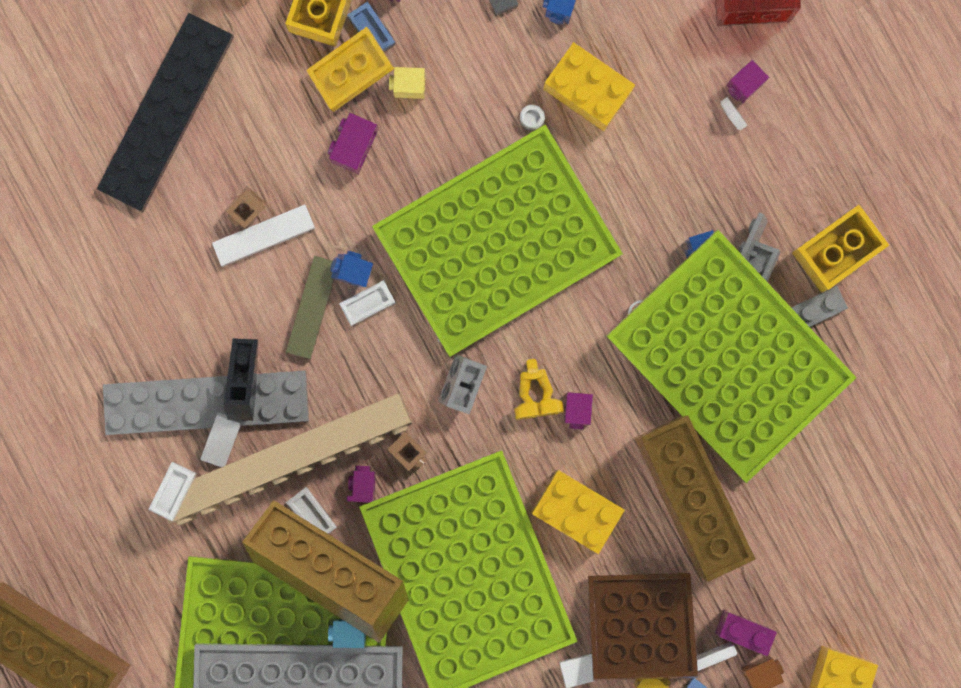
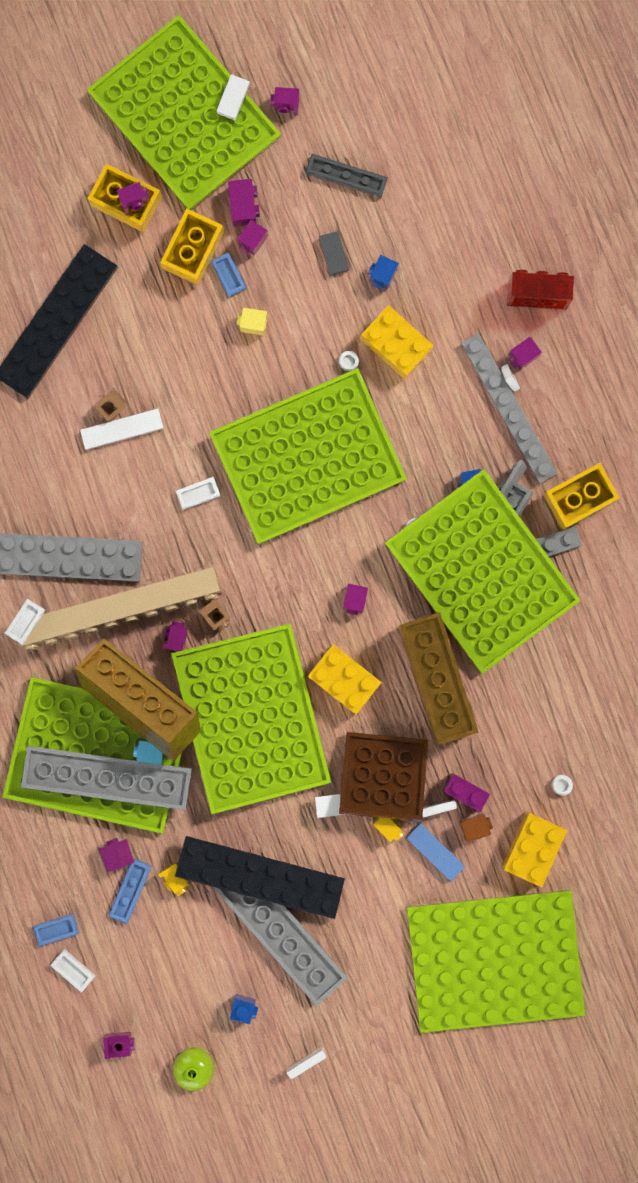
camera: 10 degrees right, 0 degrees up
(220, 440) = (68, 587): white tile -> none
(241, 380) = (90, 541): black slope -> none
(308, 508) = (130, 648): white tile -> none
(311, 308) = (154, 491): olive tile -> none
(350, 69) = (207, 305): yellow plate -> none
(351, 269) = (188, 464): blue brick -> none
(353, 143) = (202, 364): magenta brick -> none
(462, 384) = (265, 566): light grey brick -> none
(530, 408) = (317, 593): yellow piece -> none
(736, 152) = (509, 408): none -> light grey plate
(861, 607) = (562, 785): none -> white tile

